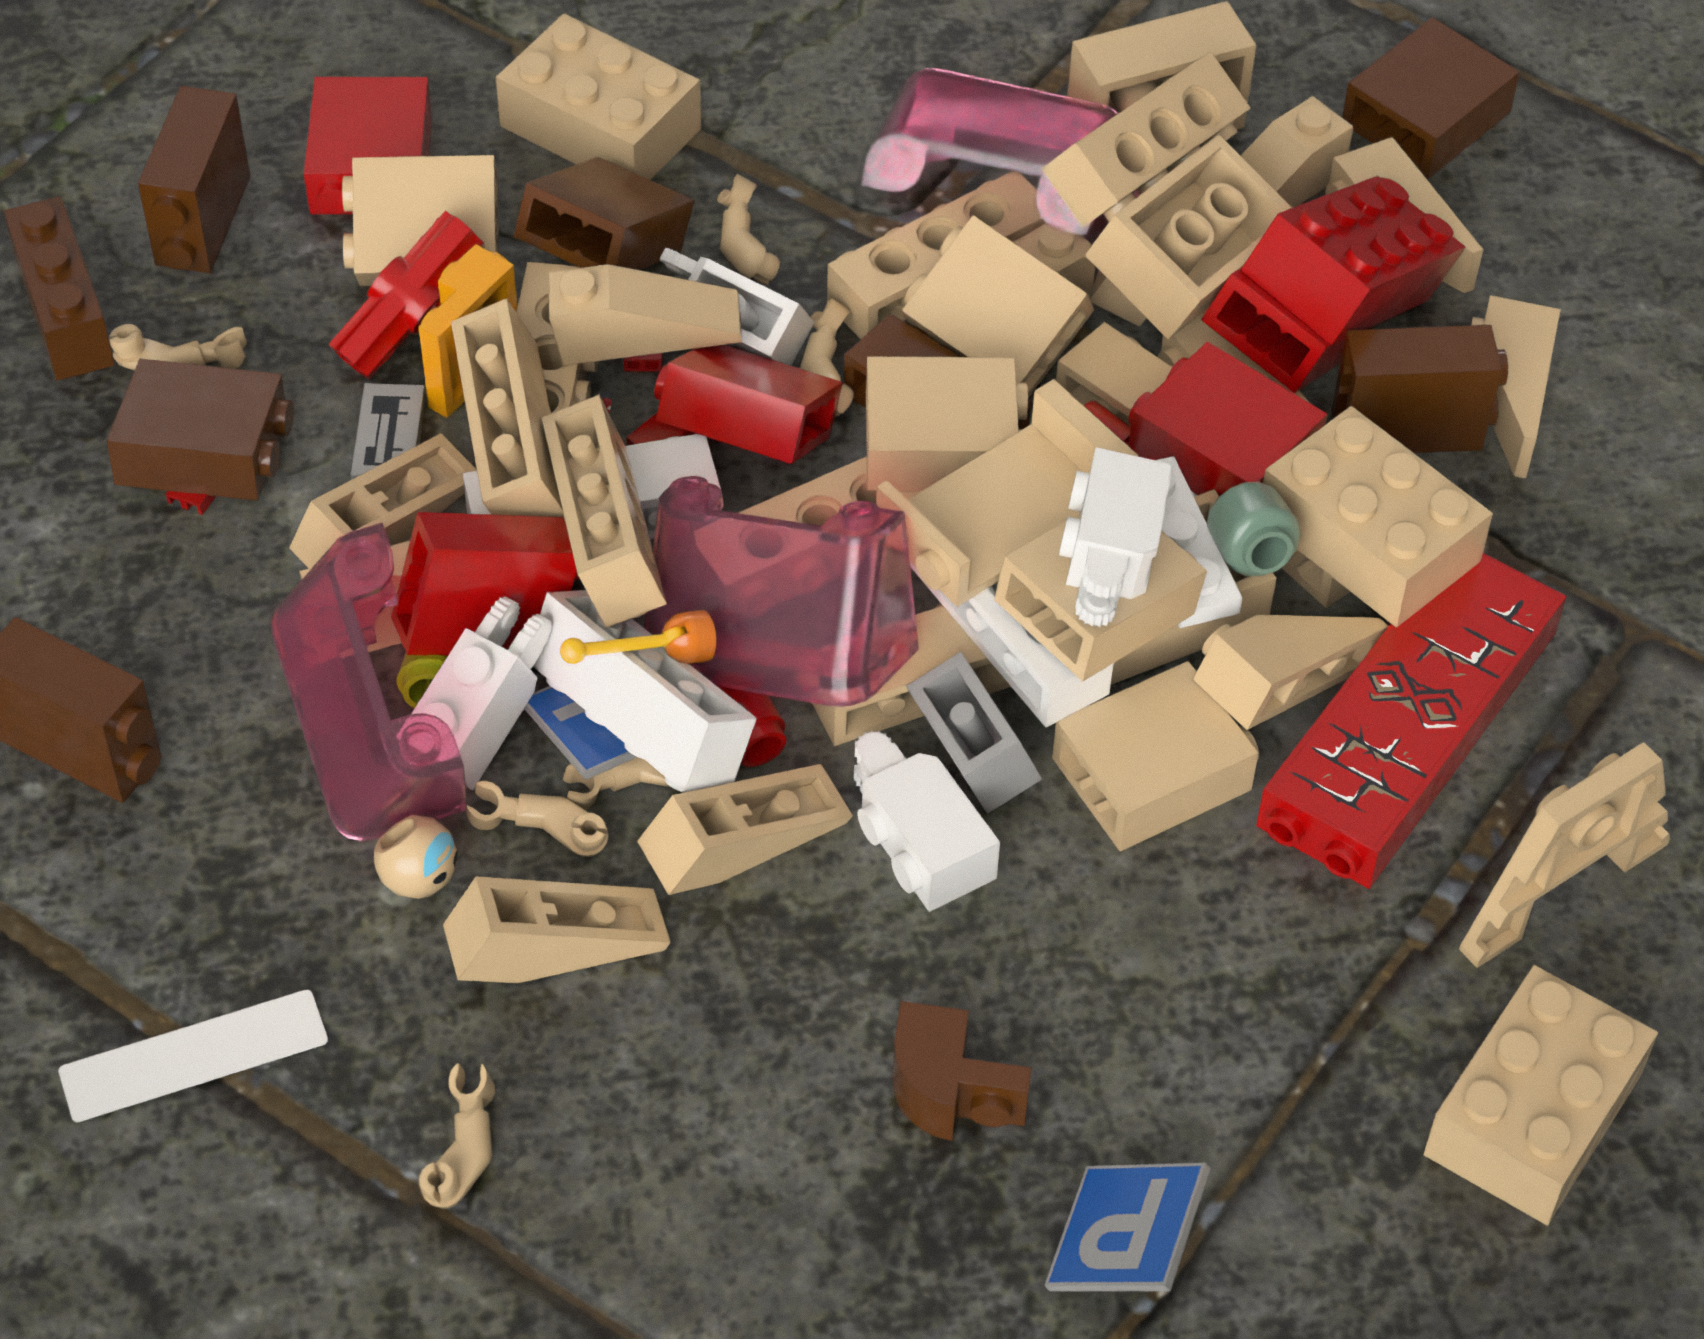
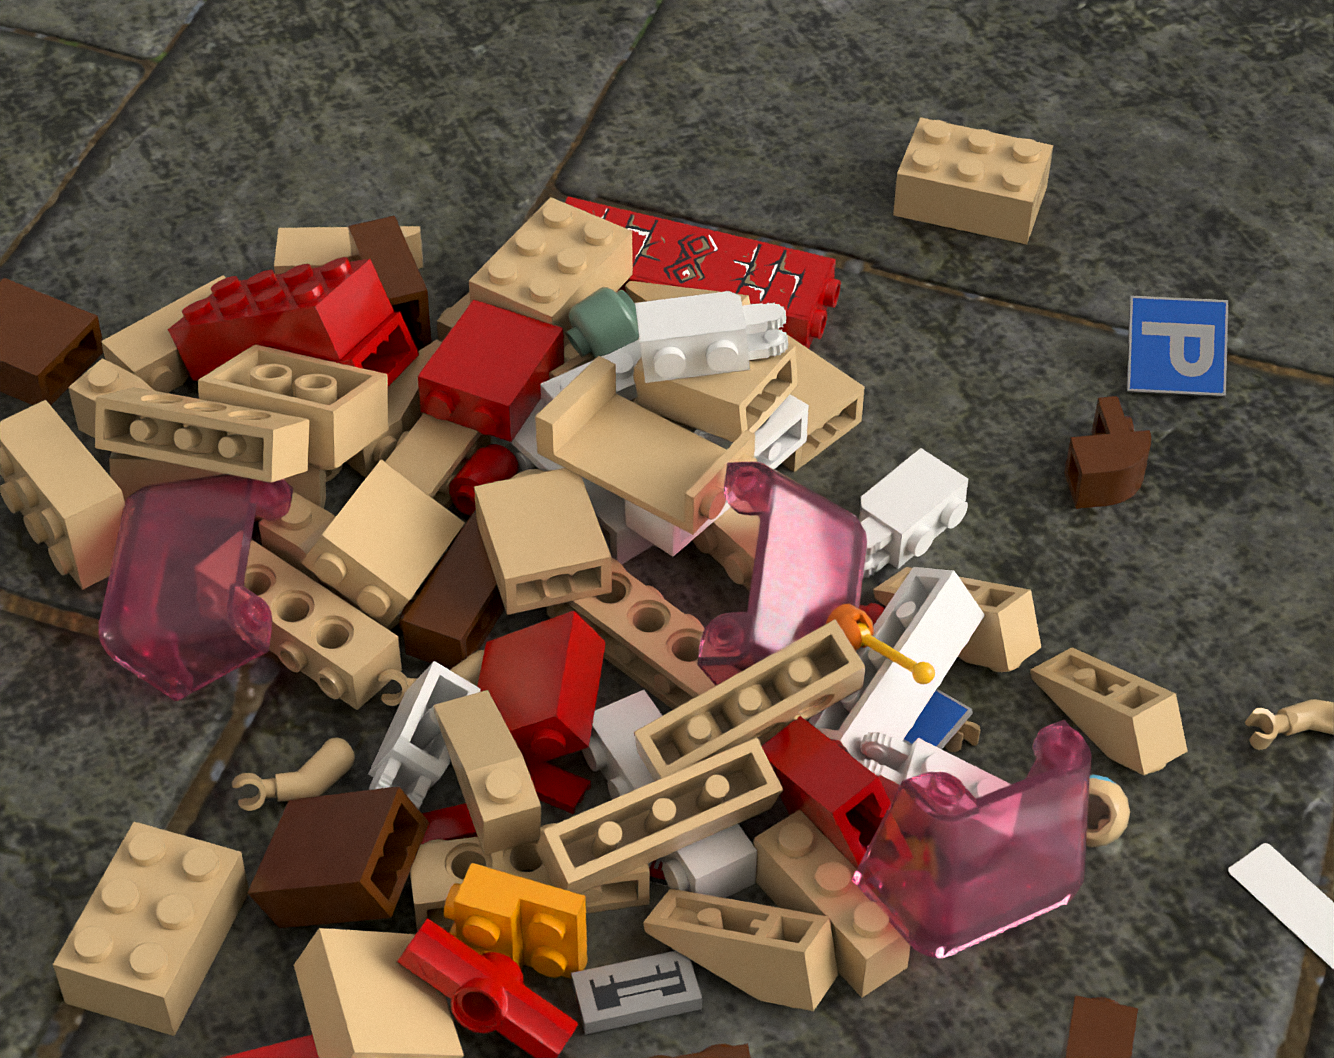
camera: 105 degrees left, 5 degrees down
(559, 816) = (1000, 736): tan arm -> none
(974, 732) = (839, 470): light grey brick -> none
(1603, 815) = (805, 139): tan wing -> none

